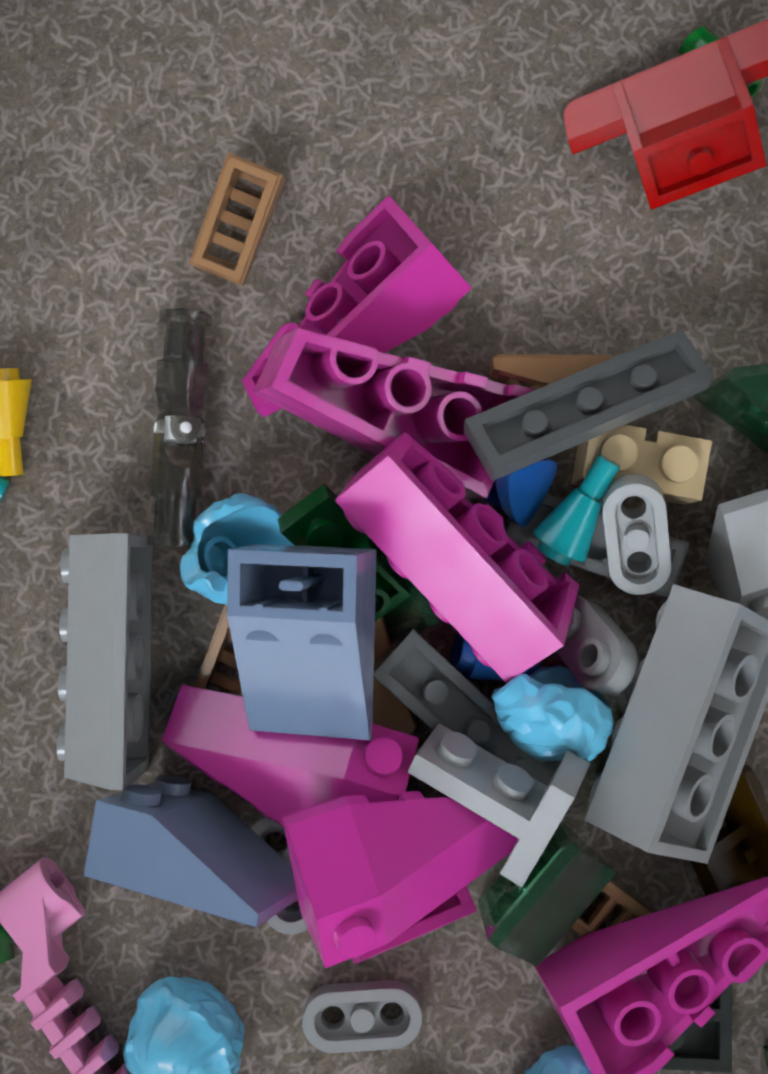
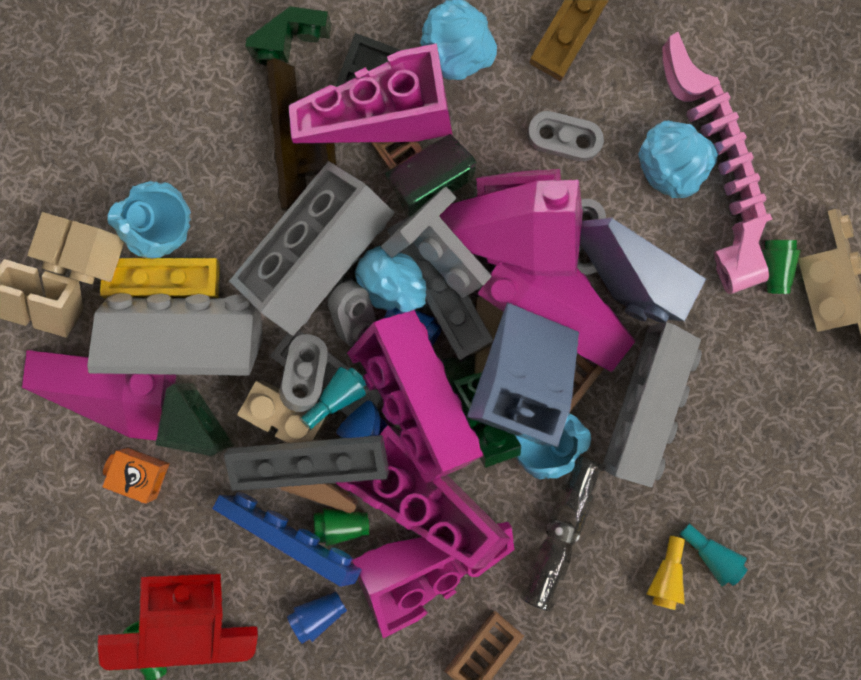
camera: 160 degrees left, 0 degrees up
(495, 193) = (316, 616): none -> blue cone
(506, 330) = (339, 526): none -> green cone
(559, 284) = (299, 544): none -> blue plate

